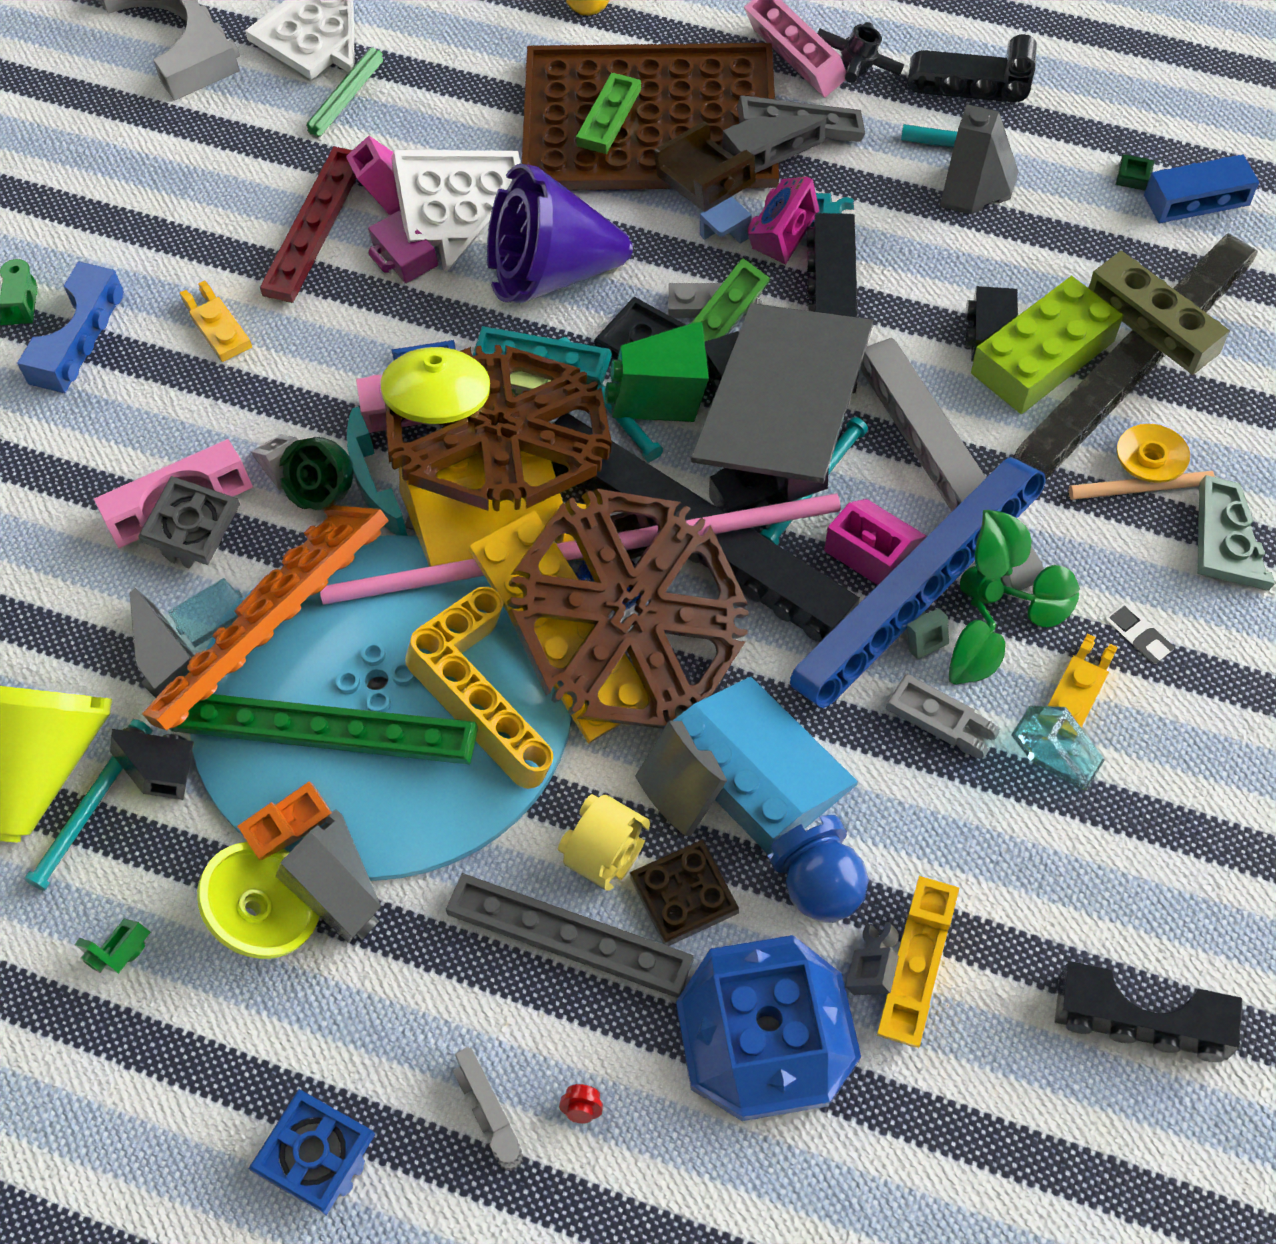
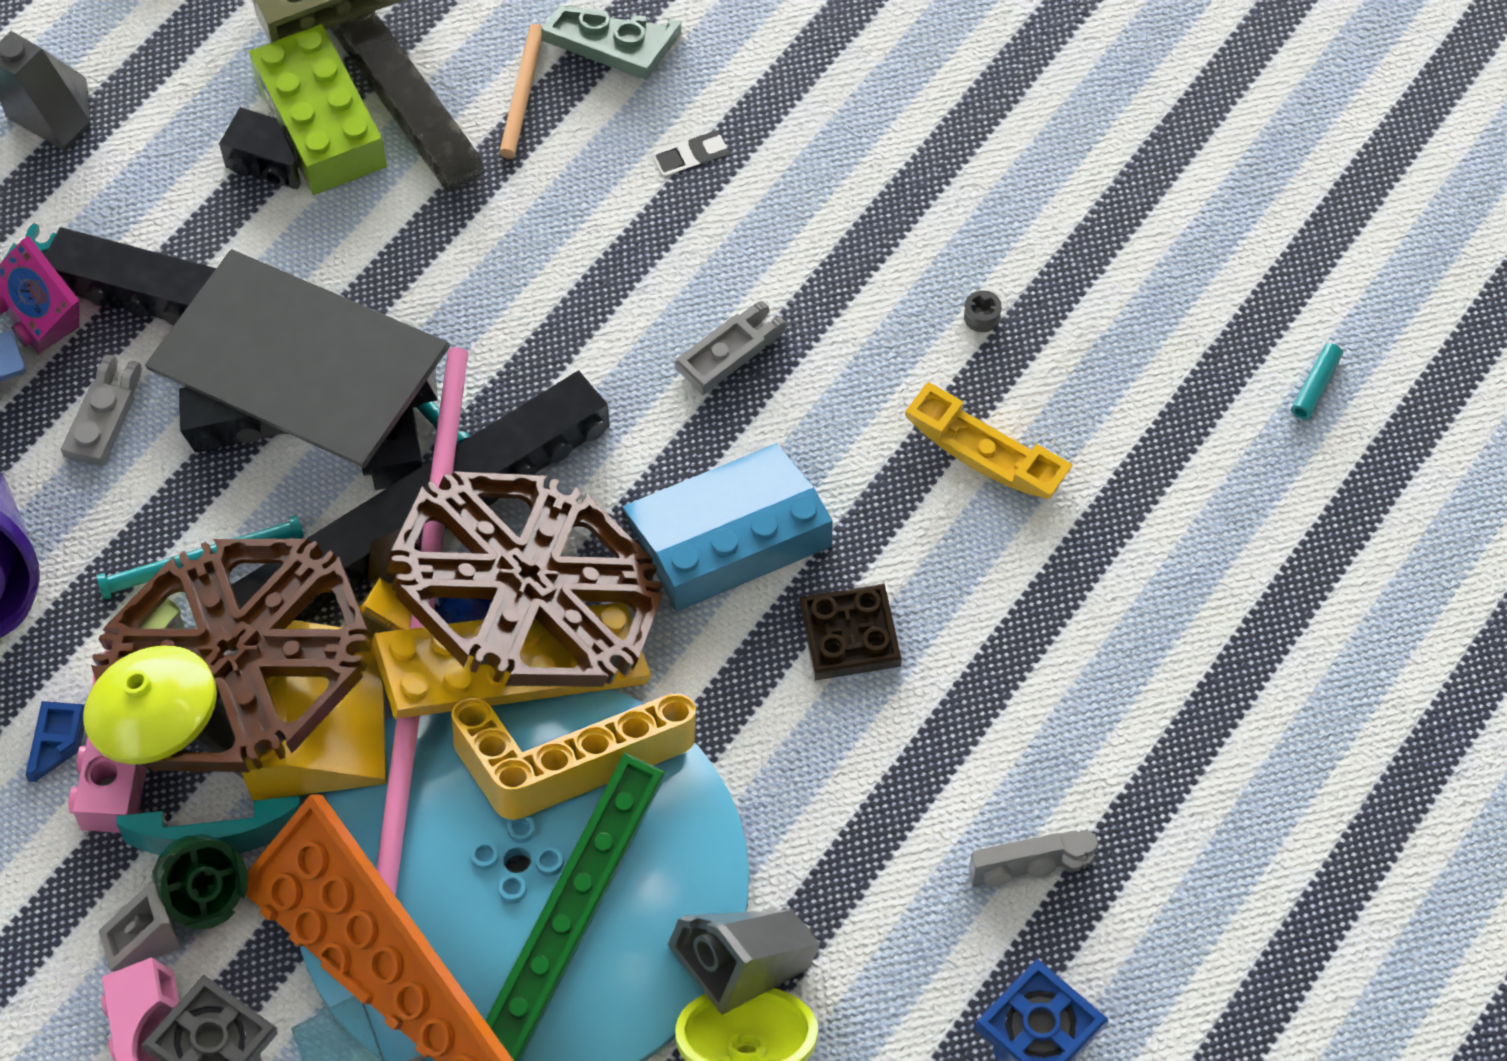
camera: 75 degrees left, 0 degrees up
(285, 822) = (660, 987): orange slope -> none
(570, 935) = (866, 747): dark grey plate -> none
(581, 1103) = (1049, 772): red plate -> none
(588, 358) = (73, 651): teal tile -> none
(603, 840) = (784, 677): light yellow brick -> none
(634, 323) = (123, 500): black tile -> none
(660, 376) = (219, 473): green slope -> none
(680, 778) = (735, 589): dark grey slope -> none
(731, 300) = (136, 395): bright green plate -> none
(759, 1070) = (1008, 626): blue piece -> none
(822, 873) = (882, 490): blue tile -> none
(870, 539) = (508, 342): dark pink slope -> none
(875, 966) = (980, 480): dark grey plate -> none
(912, 585) = (581, 311): blue beam -> none
(928, 633) = (629, 329): sand green tile -> none
(931, 436) = (441, 244): light grey beam -> none
(1000, 546) = (608, 208): green plant -> none
(1058, 744) = (796, 257): clear light blue slope -> none
(1070, 911) = (979, 321): none -> dark grey bush
(1082, 681) = (736, 221): yellow hinge -> none
(1092, 1002) = (1065, 313): black arch -> none
(1153, 453) = (493, 64): yellow dish -> none

